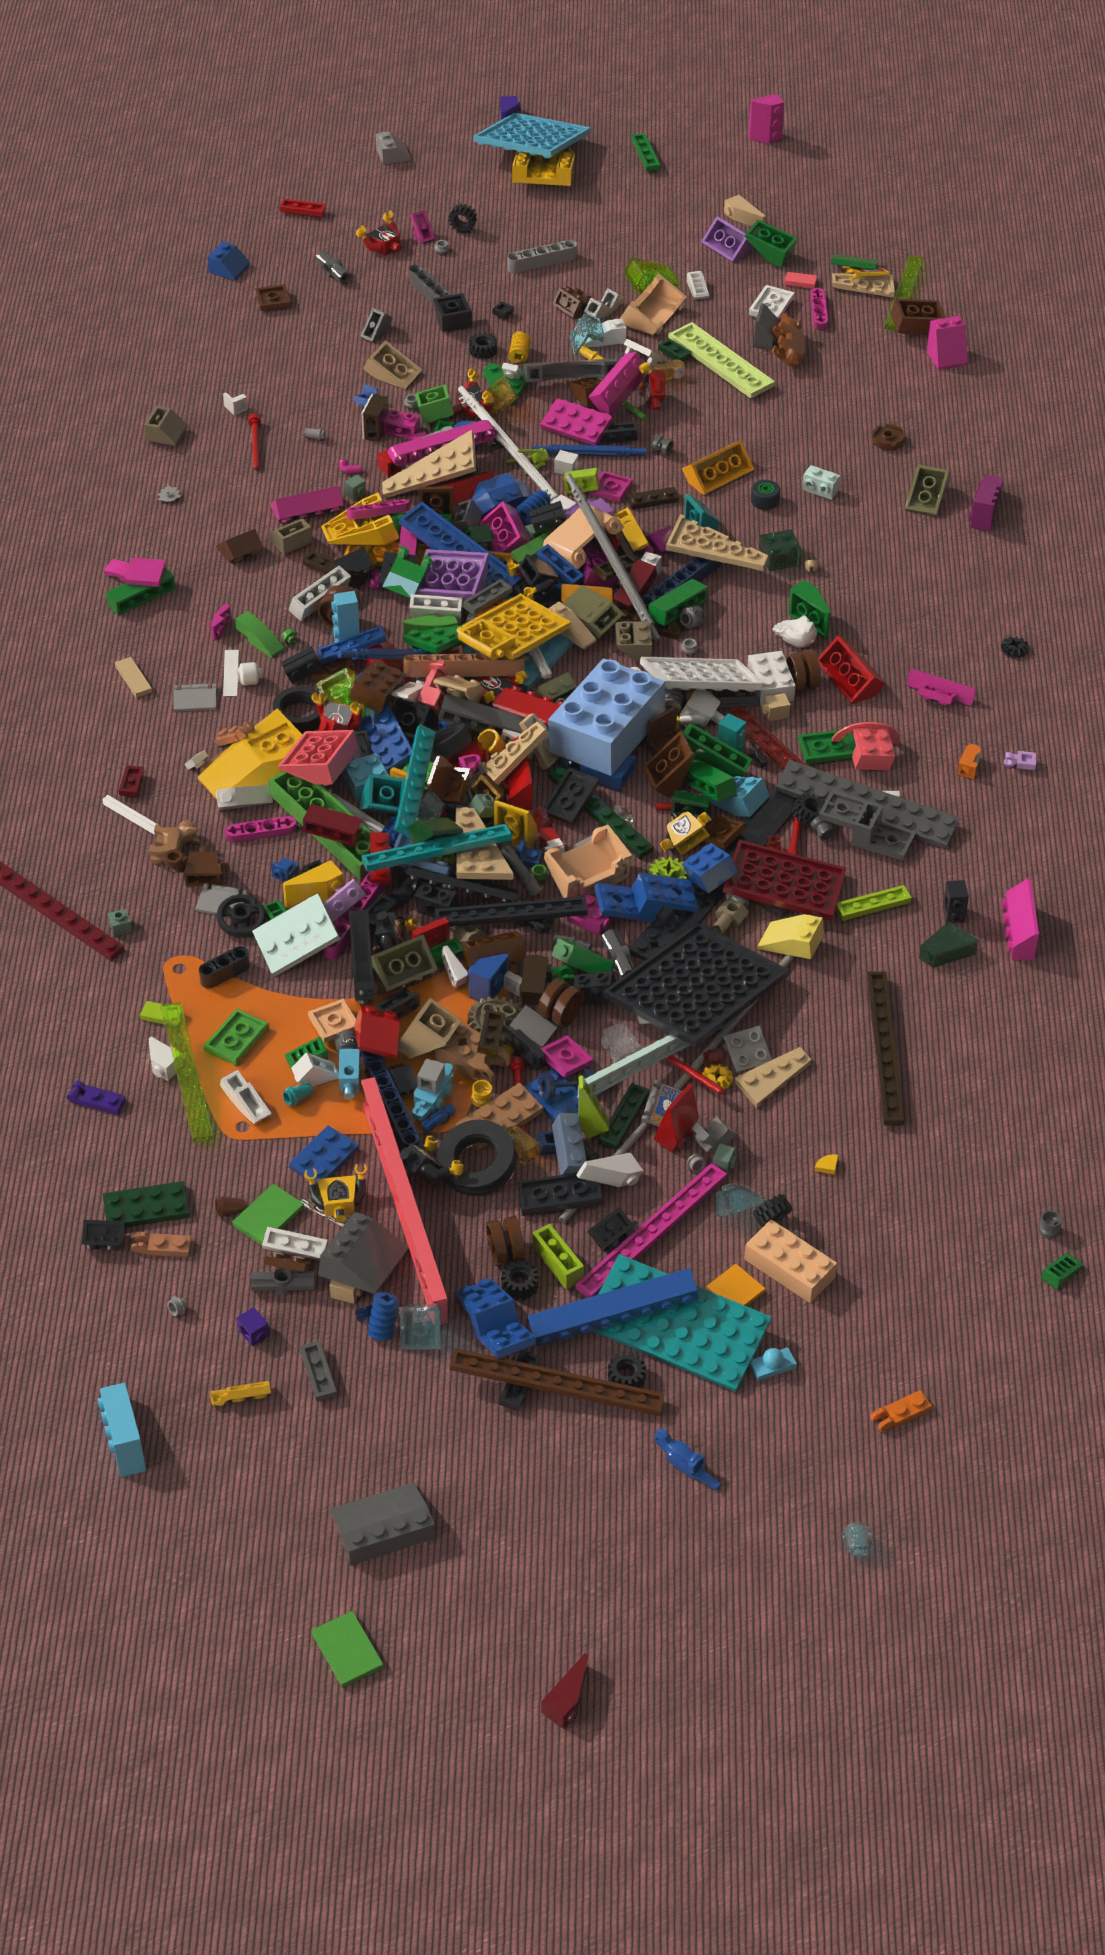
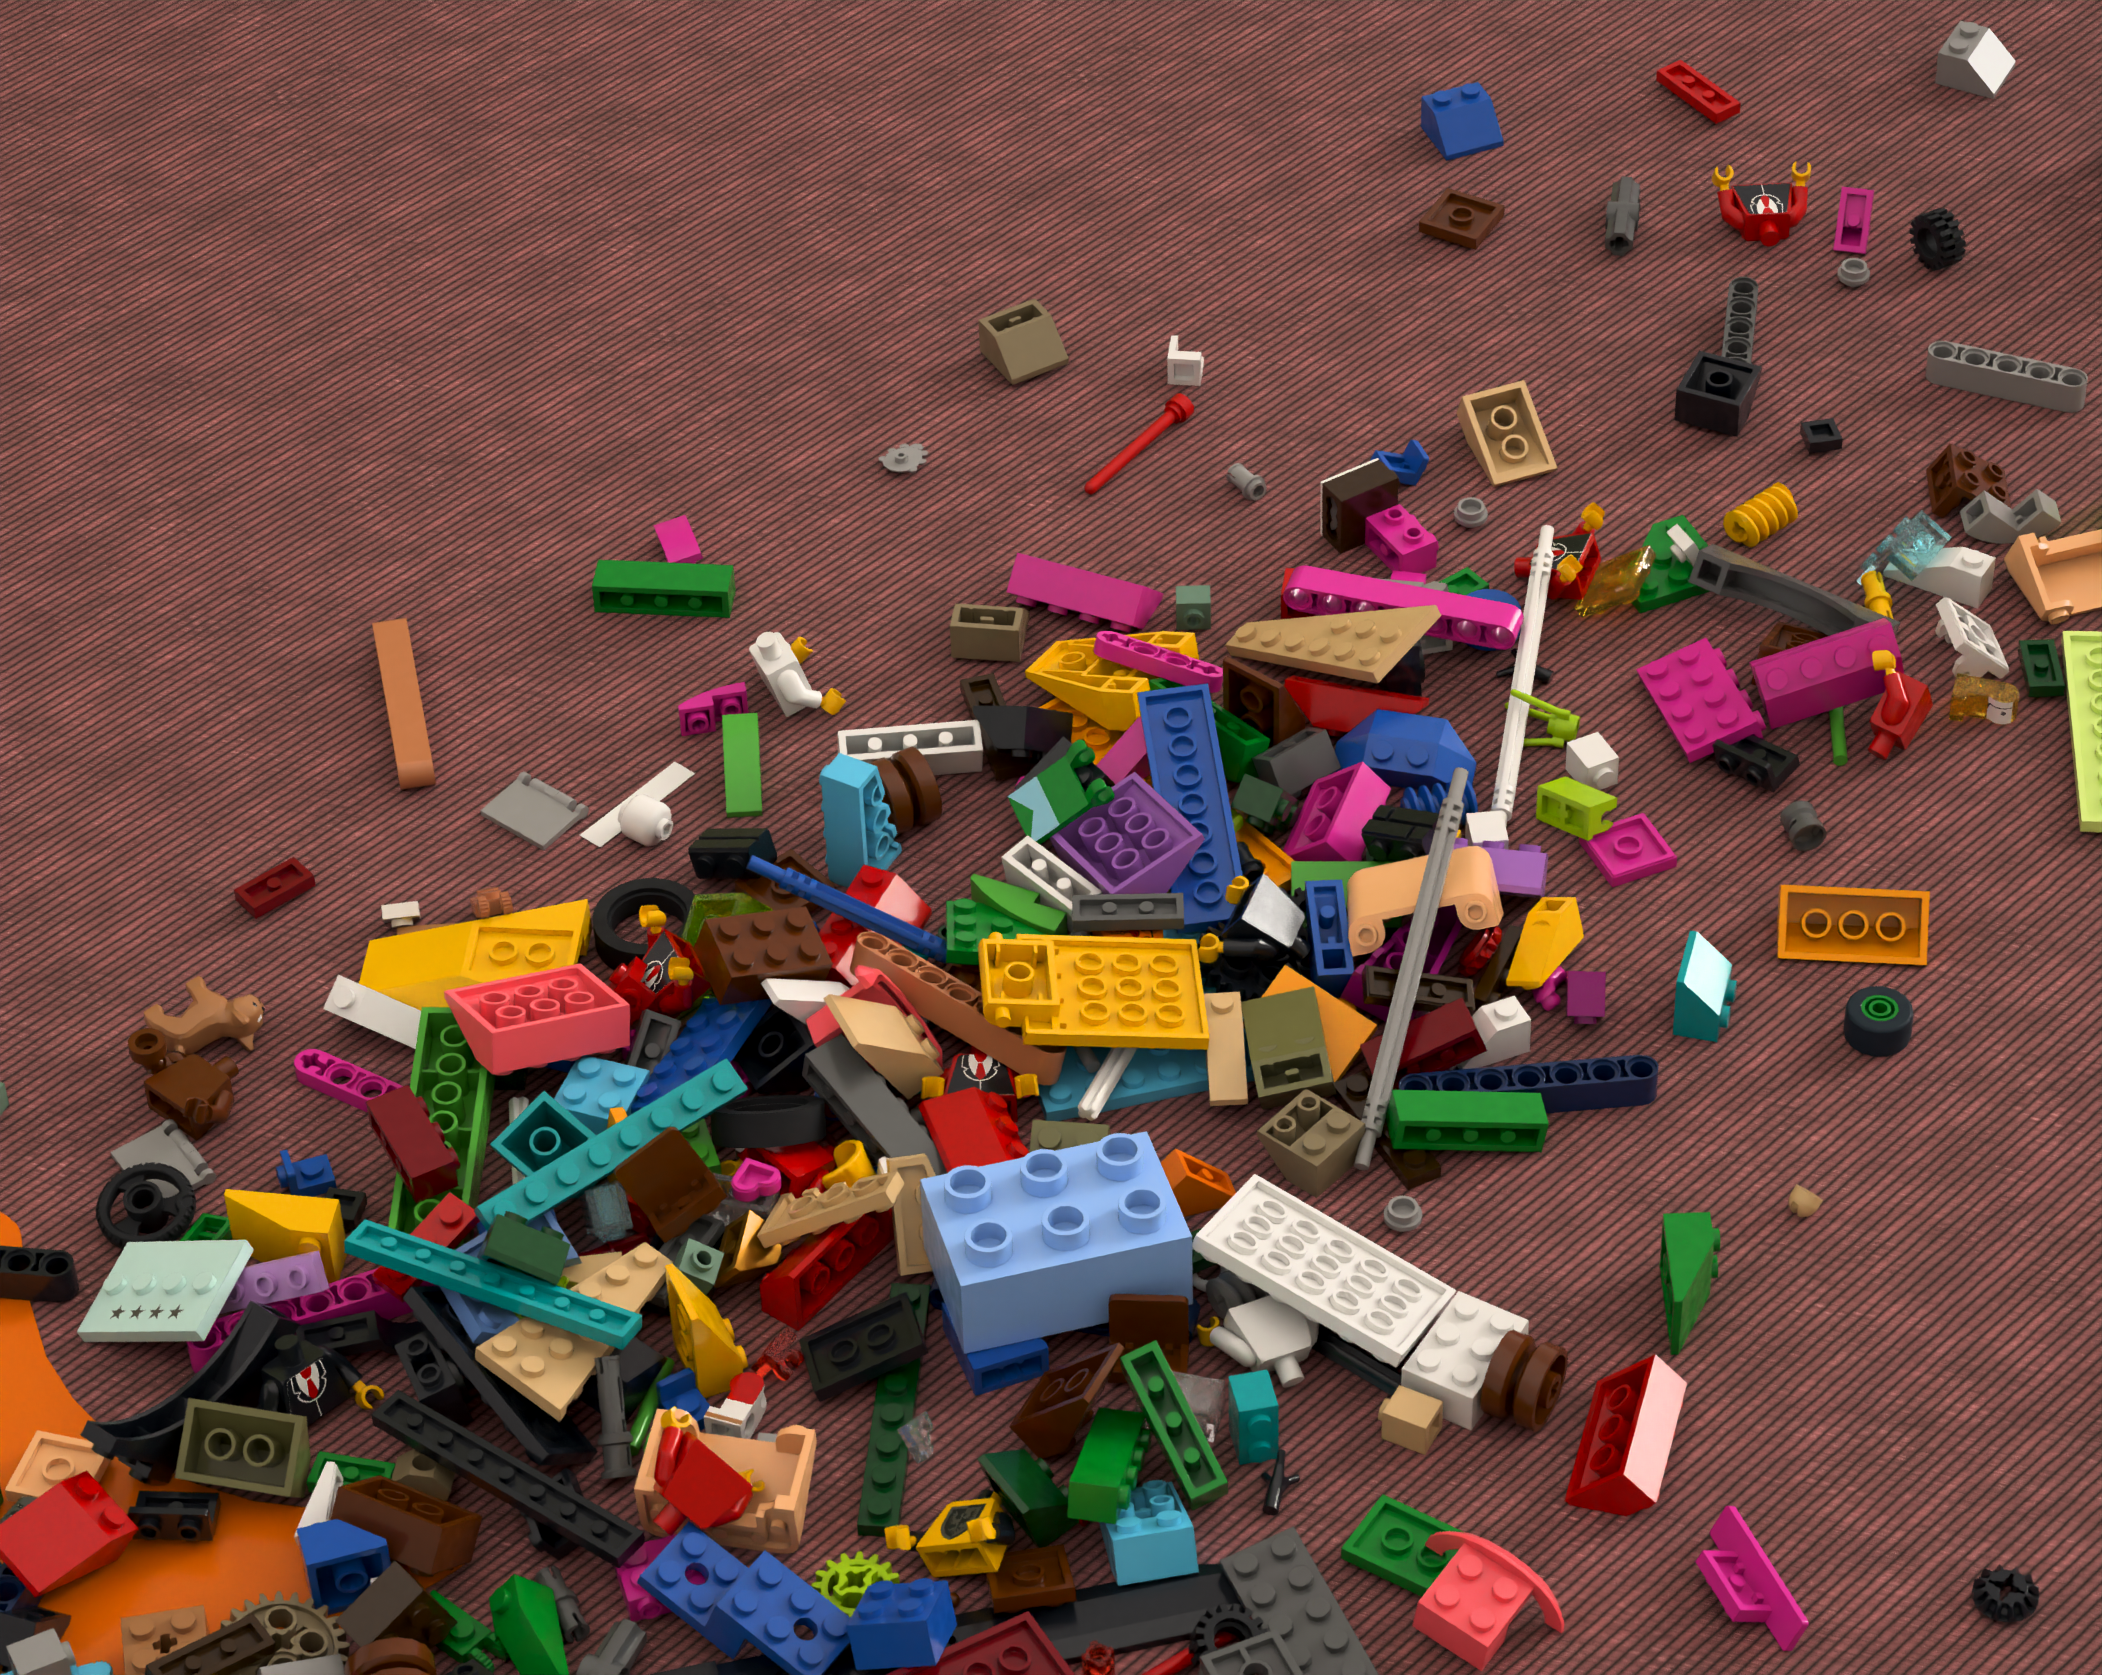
camera: 45 degrees right, 5 degrees down
(91, 688) = (403, 704): none -> nougat beam
(129, 813) = (212, 940): white axle -> none
(133, 677) = (487, 723): tan tile -> none
(145, 572) = (687, 560): dark pink tile -> none
(236, 593) = (782, 674): none -> white torso
(240, 545) = (895, 602): reddish brown slope -> none
(289, 636) = (787, 796): bright green plate -> none
(347, 468) = (1228, 571): dark pink arm -> none
(359, 641) = (839, 864): blue tile -> none
(376, 325) = (1569, 350): dark grey slope -> none
(428, 1030) = (131, 1579): tan slope -> none
(434, 404) = (1484, 535): bright green brick -> none
(434, 932) = (344, 1431): red plate -> none
(483, 345) = (1695, 476): black tyre -> none
(589, 864) = (697, 1480): none -> red torso
(594, 450) = (1668, 763): blue axle -> none
(653, 498) = (1674, 911): dark brown plate -> none
(692, 617) = (1465, 1163): dark grey head -> none
(710, 544) = (1637, 1048): tan wing -> none
(764, 738) = (1321, 1463): clear red plate -> none
(781, 549) = (1774, 1138): clear green brick -> none
(797, 632) = (1612, 1304): white piece -> none
(817, 479) = (2008, 1058): light aqua brick -> none

